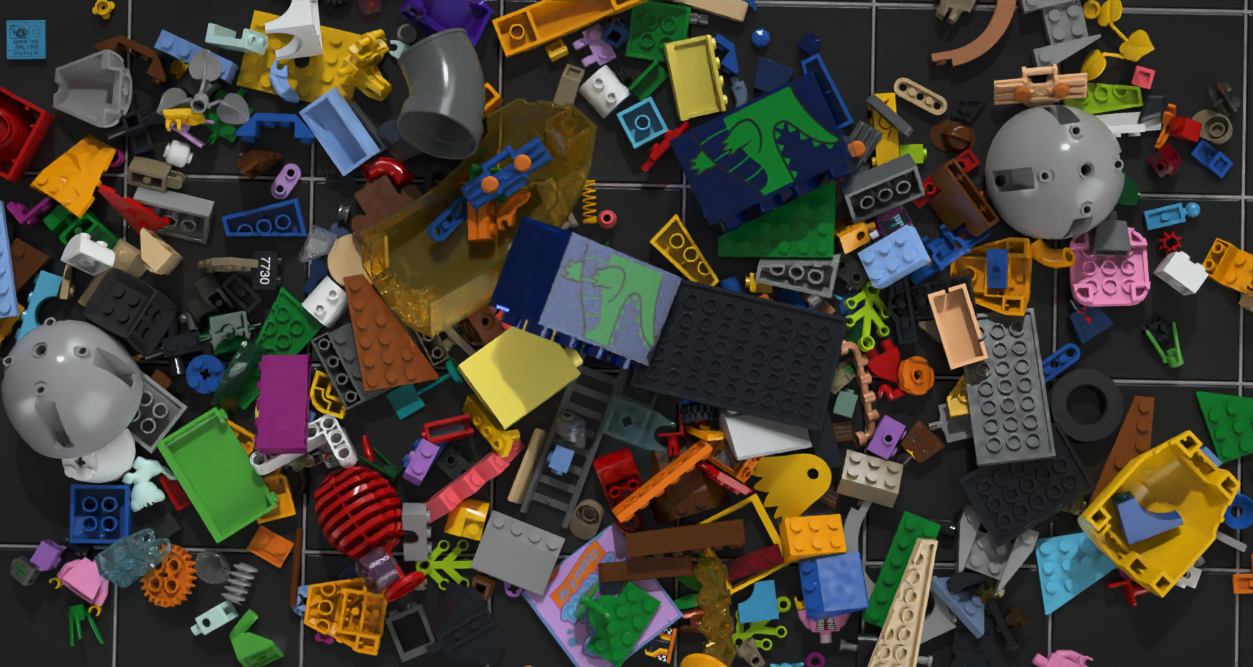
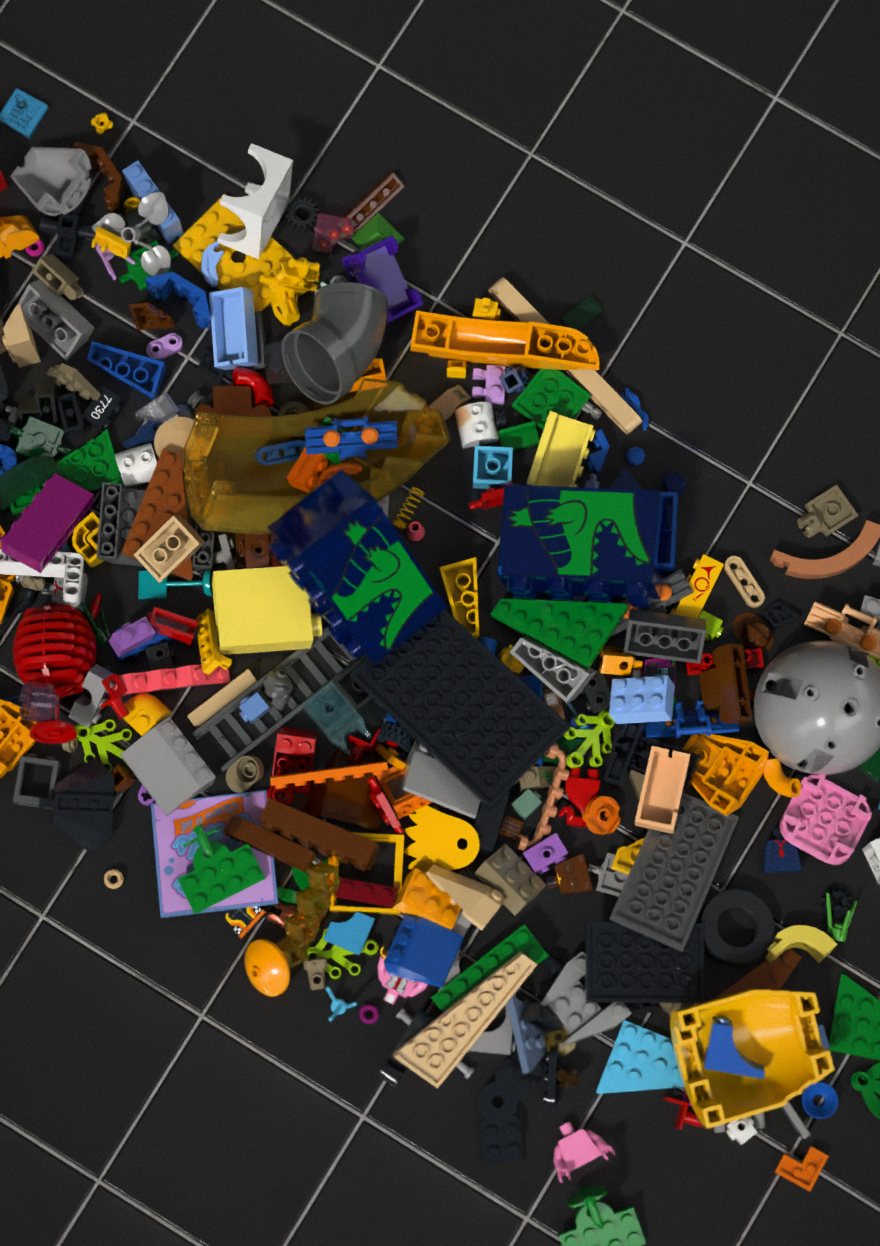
camera: 30 degrees right, 10 degrees down
(133, 212) = (22, 294): red wing -> none
(178, 153) = (89, 272): white head -> none
(225, 38) = (201, 213): light aqua panel -> none
(404, 364) = (169, 547): none -> tan slope
(438, 523) = (115, 700): none -> red bracket
(851, 514) = (476, 899): none -> tan wedge
(889, 115) = (707, 579): dark grey beam -> none
(997, 268) = (726, 762): blue plate -> none
(1062, 360) = (738, 874): blue plate -> none
(1111, 237) = (842, 794): dark grey torso -> none
(1152, 378) = (804, 937): none -> light yellow arch

